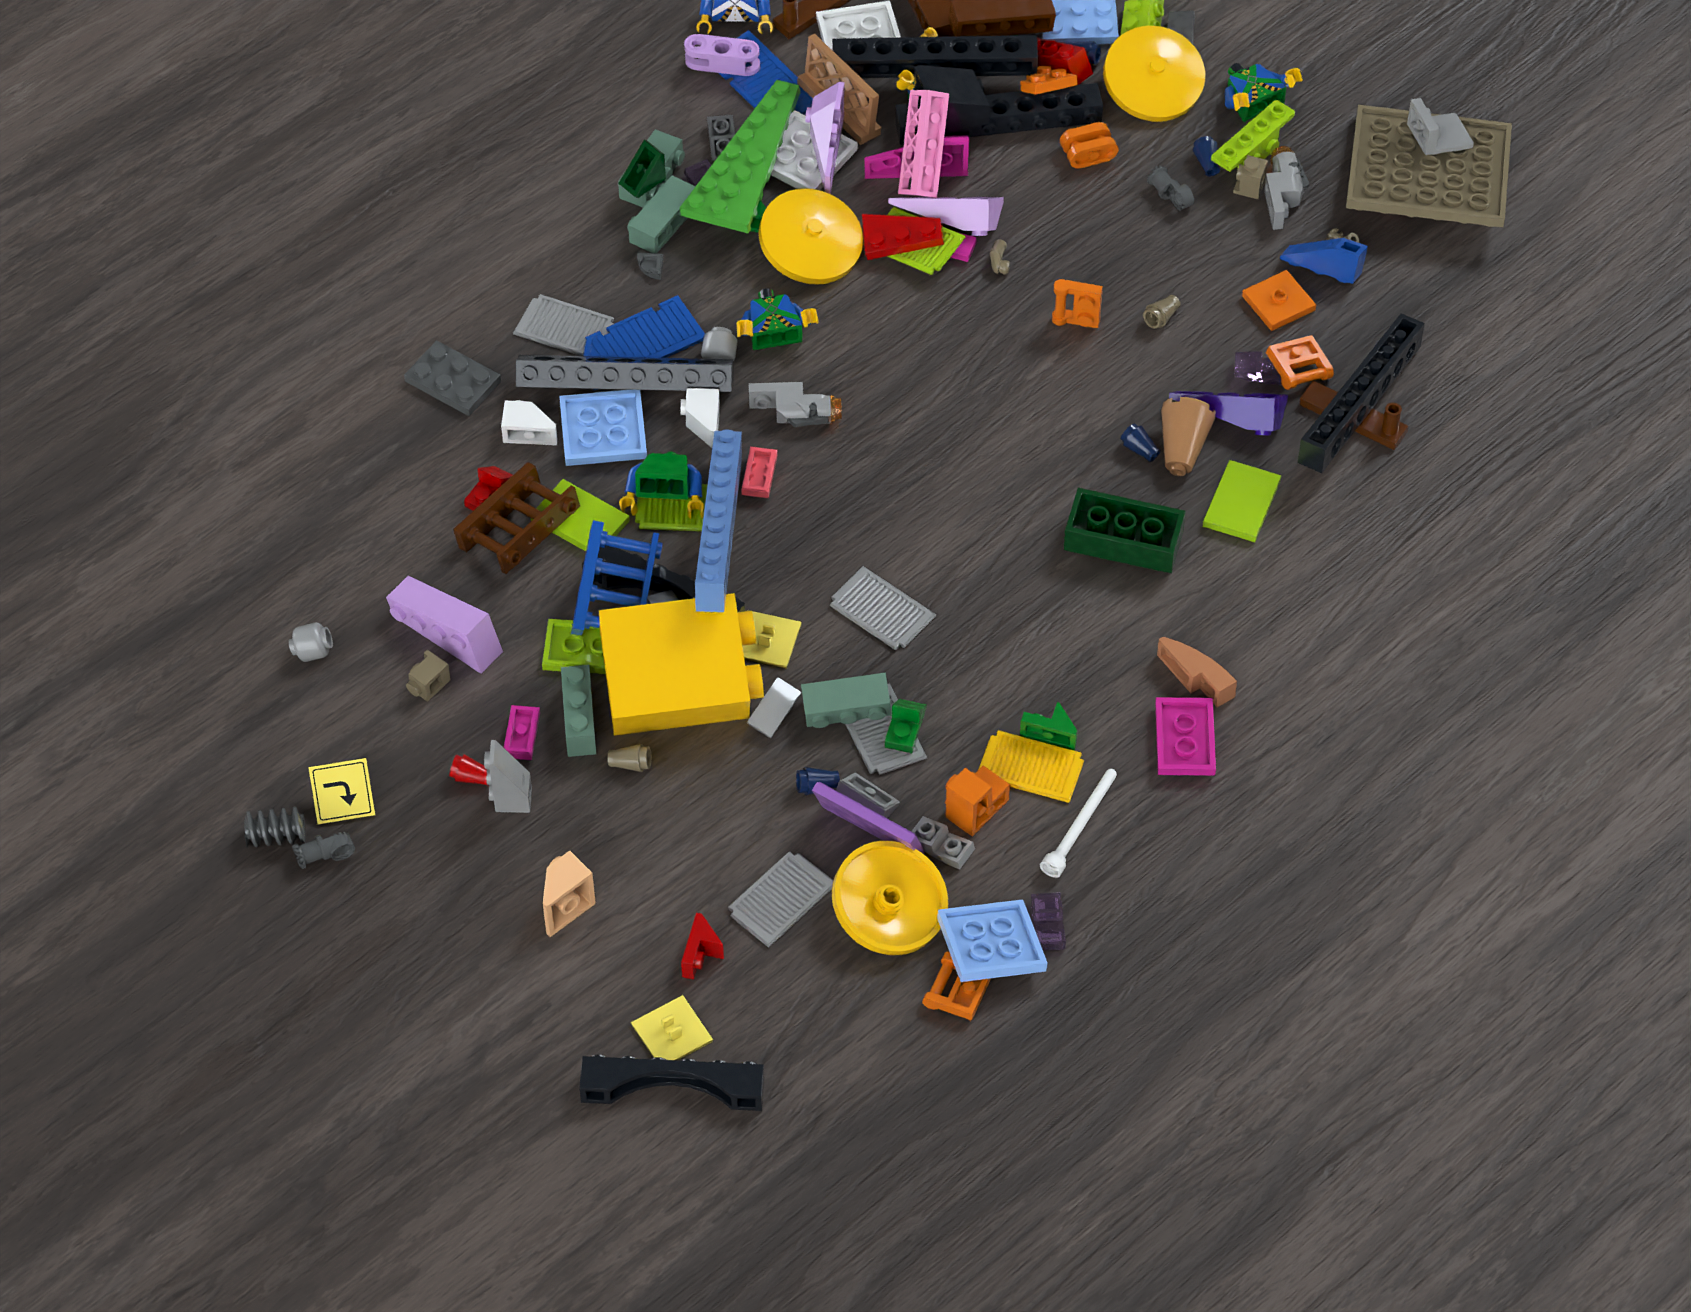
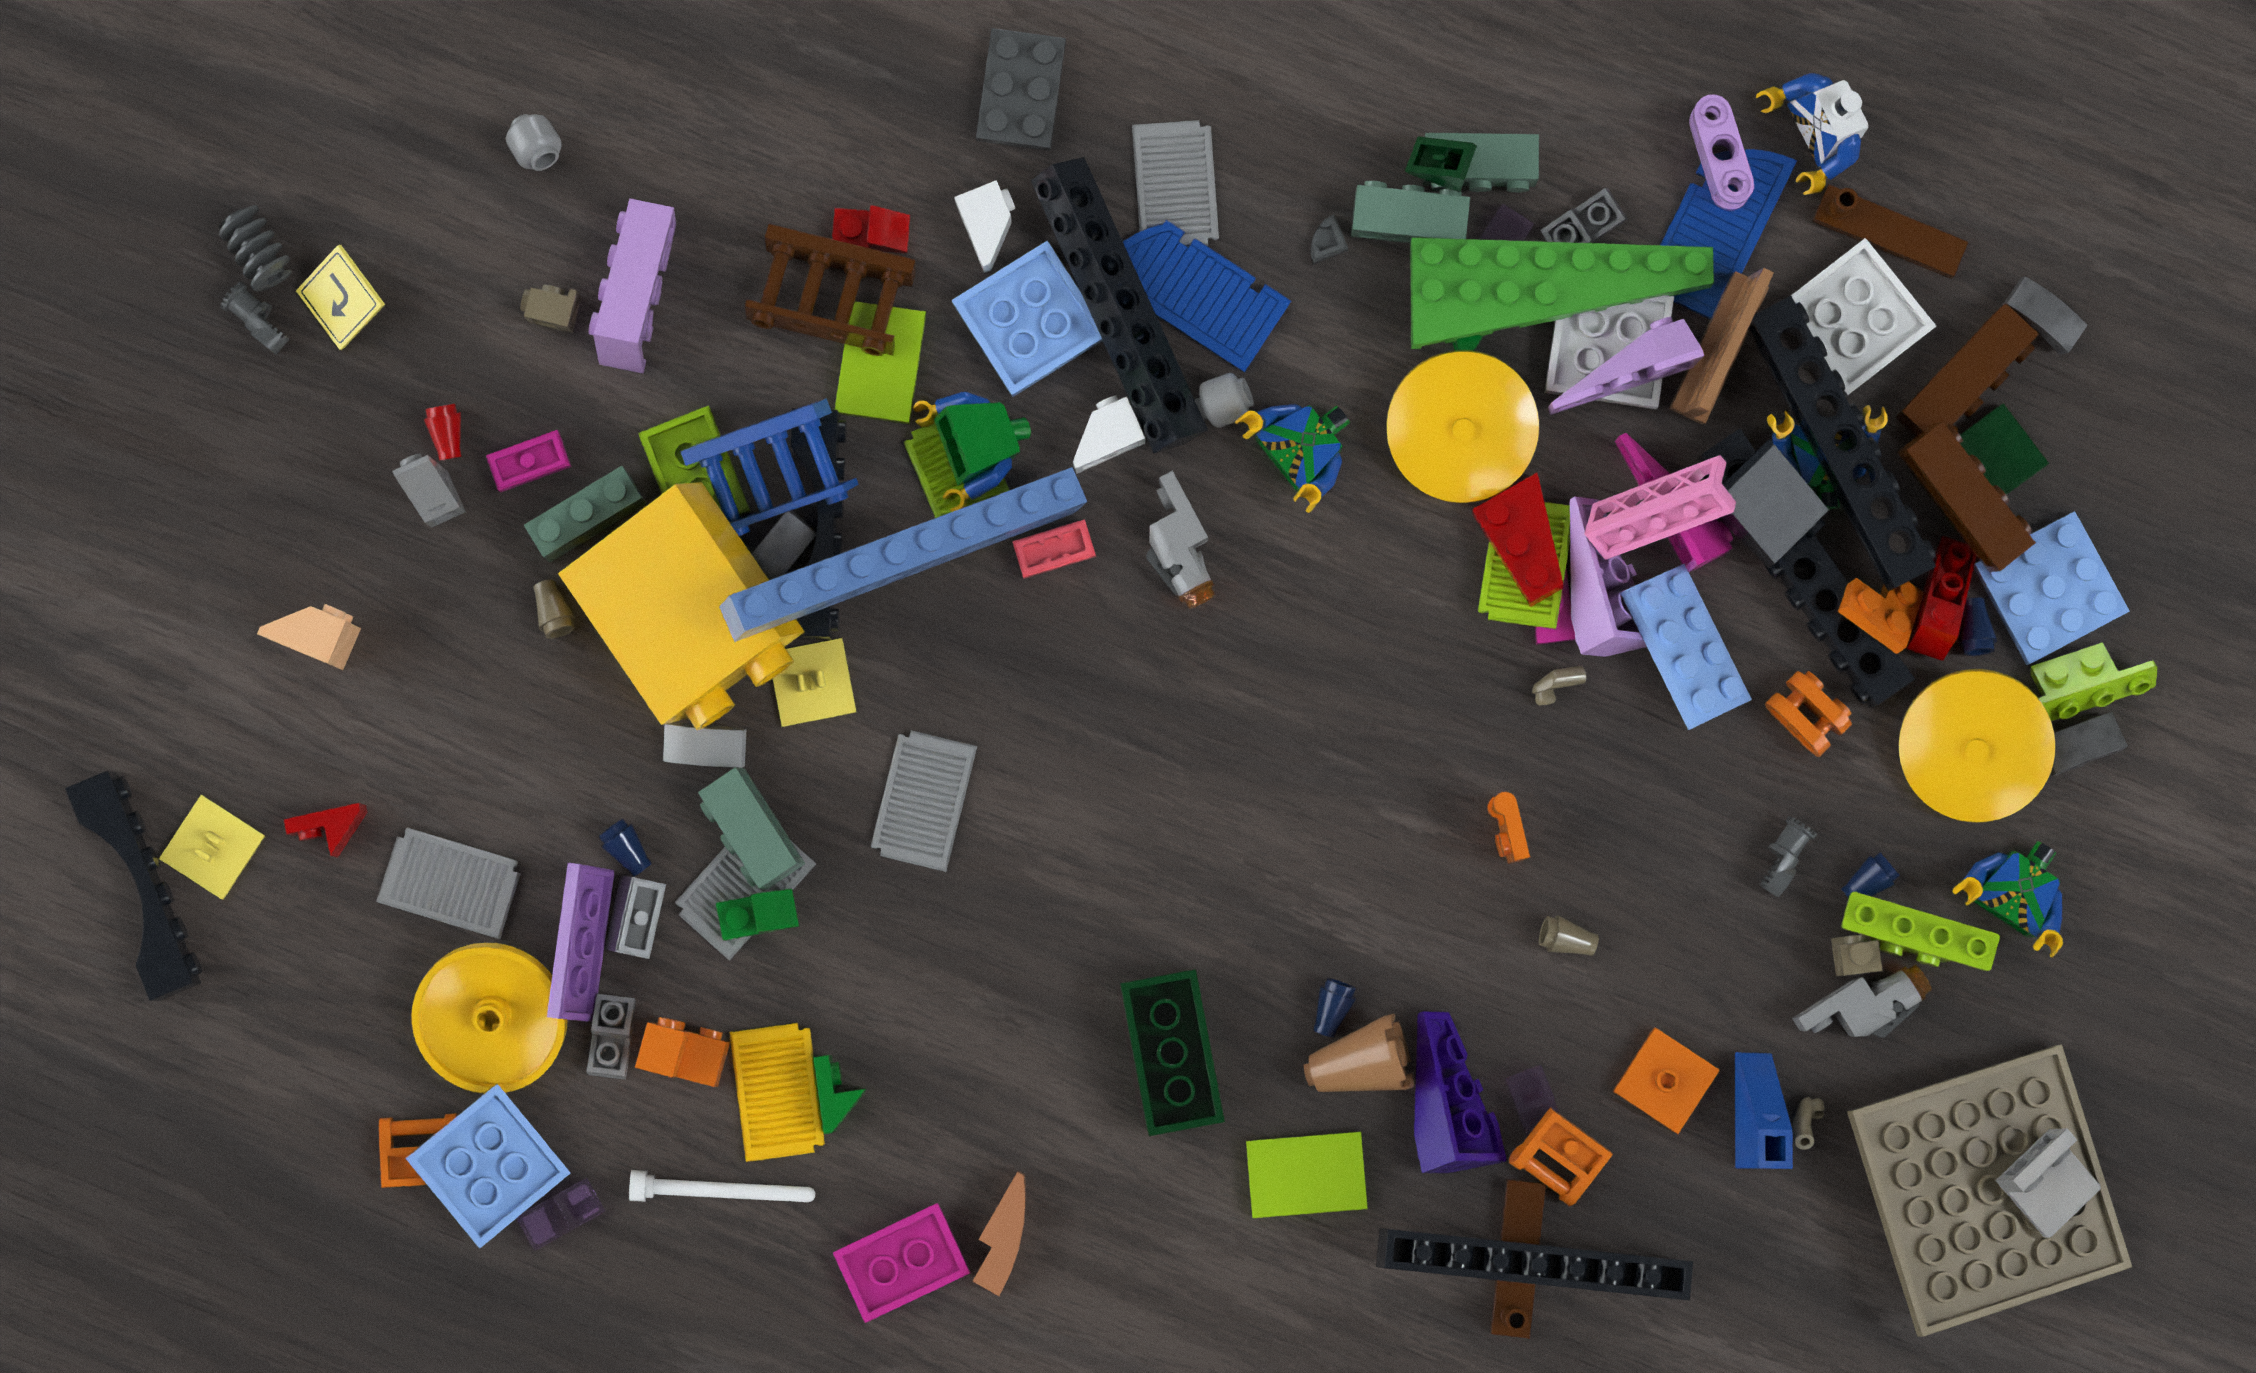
camera: 65 degrees right, 30 degrees up
(1013, 183) = (1686, 646): none -> light blue plate

